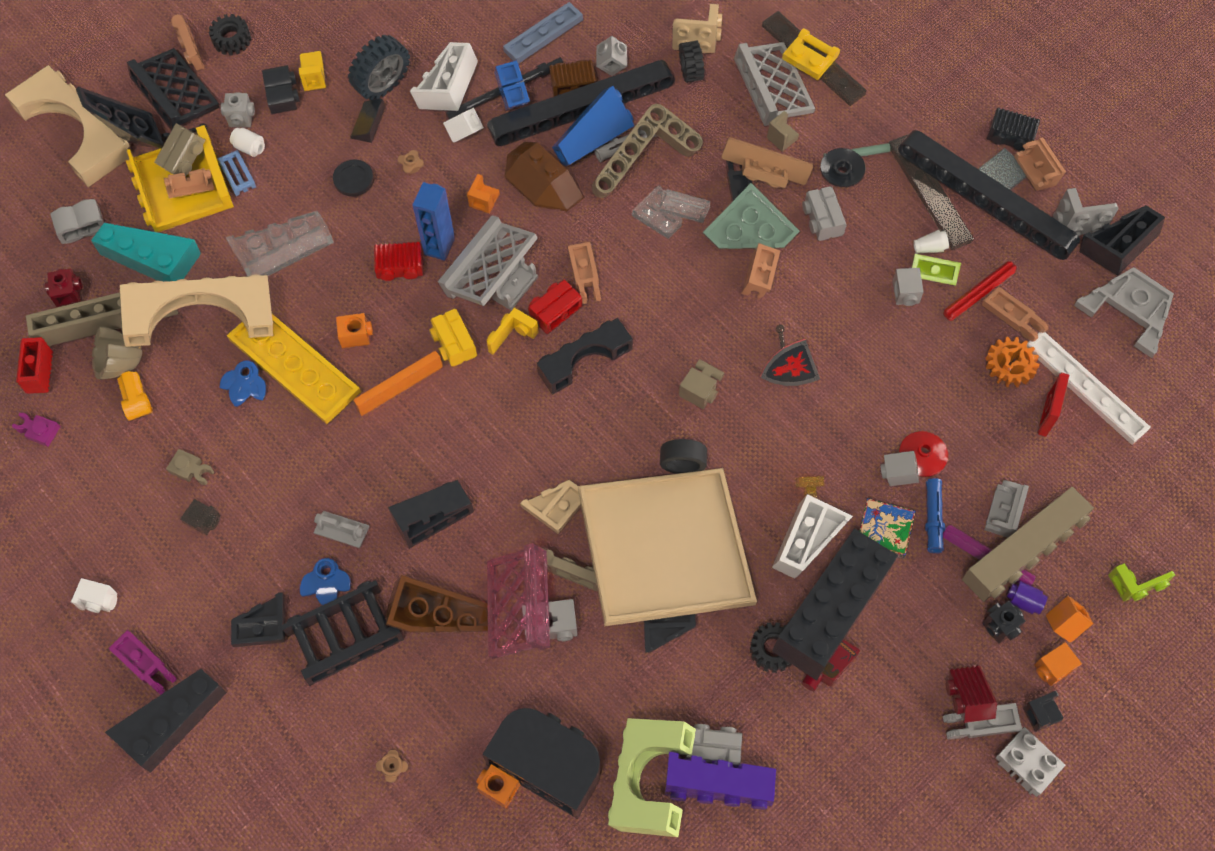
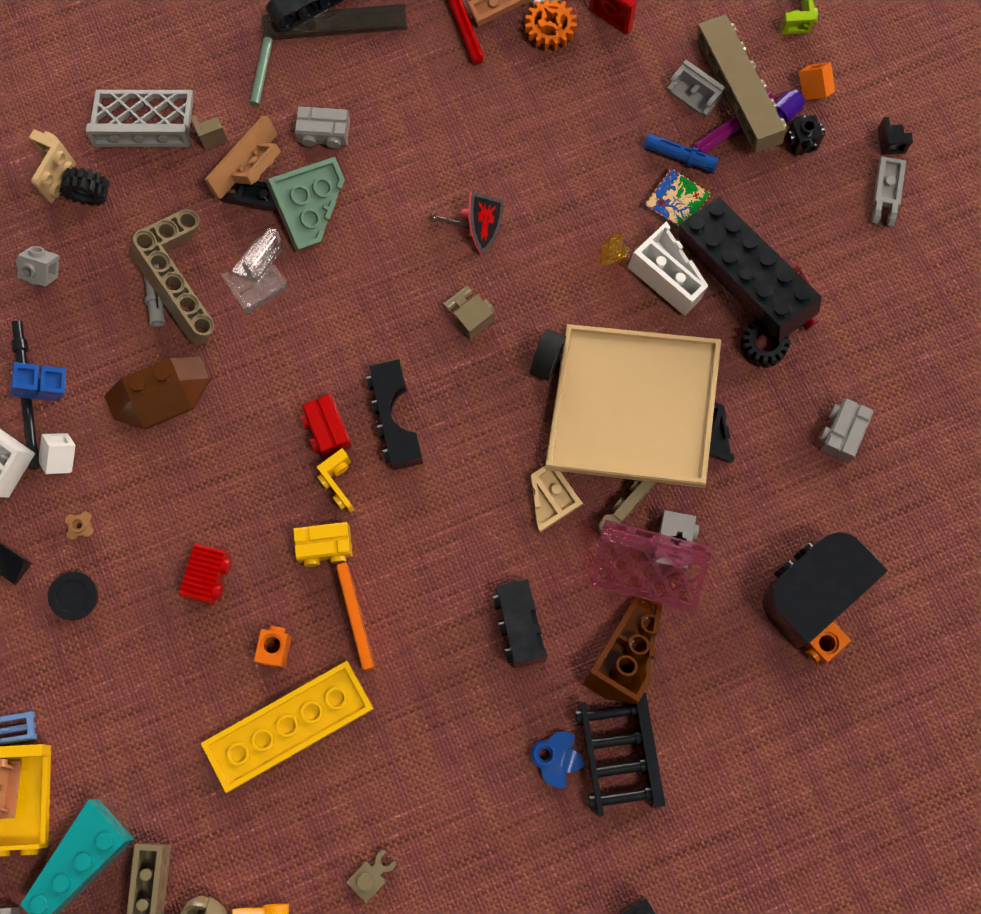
camera: 70 degrees left, 10 degrees up
(148, 303) = (163, 873): tan arch -> none
(201, 517) = (437, 876): clear smoke bracket -> none
(241, 386) = (294, 791): blue plate -> none
(260, 624) = (583, 839): black wing -> none
(280, 244) = (133, 703): clear wedge -> none
(340, 529) = (502, 725): light grey hinge -> none
(384, 766) = (780, 746): medium nougat plate -> none
(434, 220) = (185, 514): blue brick -> none
(478, 254) = (236, 494): light grey fence -> none
(482, 196) = (157, 460): orange panel -> none
(515, 285) = (281, 459): light grey hinge -> none
(570, 105) = (83, 321): black beam -> none
(571, 76) = (47, 317): reddish brown brick -> none
(584, 269) = (293, 382): nougat hinge -> none
(594, 127) = (125, 314): blue slope -> none
(641, 743) = (885, 524): yellowish green arch -> none
(719, 782) = (882, 436): dark purple wedge -> none
(761, 270) = (365, 210): nougat hinge -> none
(806, 58) = (130, 74): yellow plate -> none
(834, 77) = (127, 69): clear smoke tile -> none
(842, 160) = (273, 81): black dish -> none
(900, 468) = (627, 163): light grey brick -> none
(908, 286) = (436, 82): light grey brick -> none
(927, 463) = (609, 148): red dish -> none
(932, 243) = (395, 41): white cone -> none
(937, 269) = (423, 52): lime slope -> none
(971, 694) = (866, 187): dark red brick -> none
(1030, 761) = (936, 167): light grey hinge -> none
(1057, 664) = (856, 107): orange brick -> none

